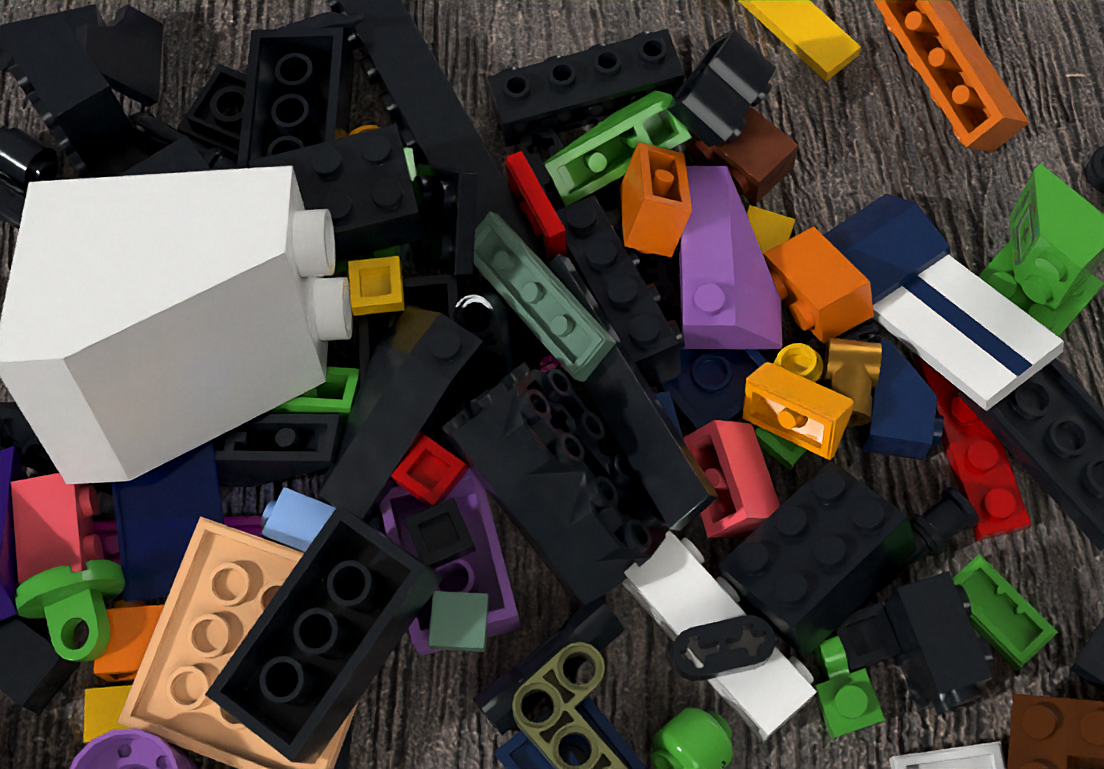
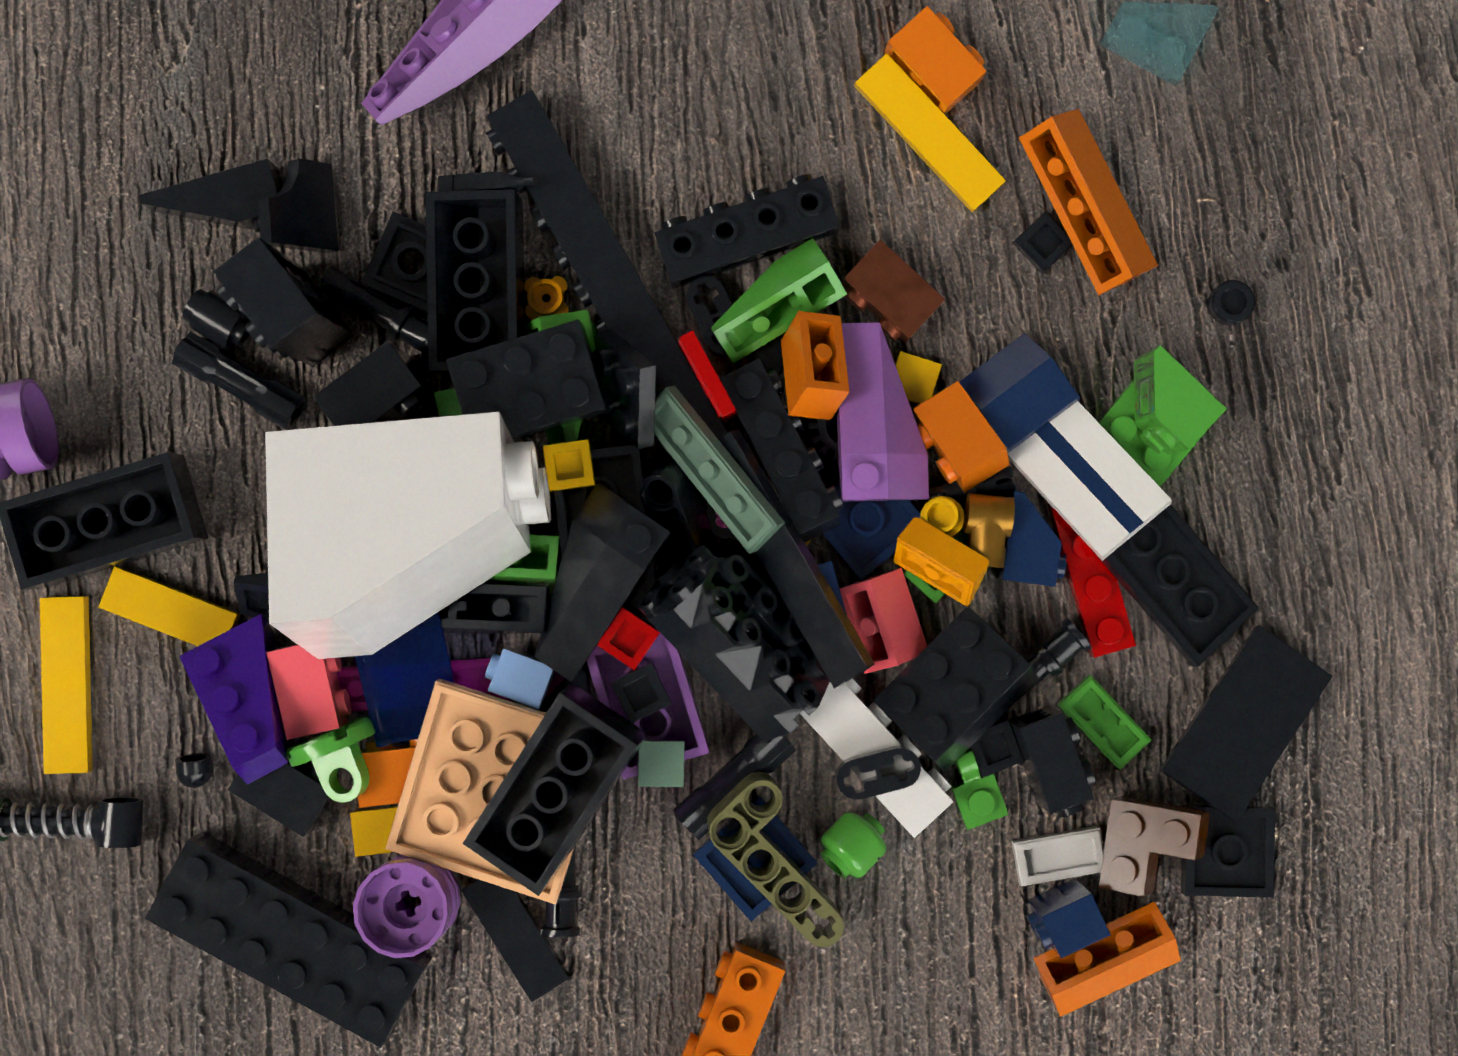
camera: 10 degrees left, 20 degrees up
(722, 89) = (875, 255): black brick -> none
(903, 108) = (1043, 242): none -> black tile

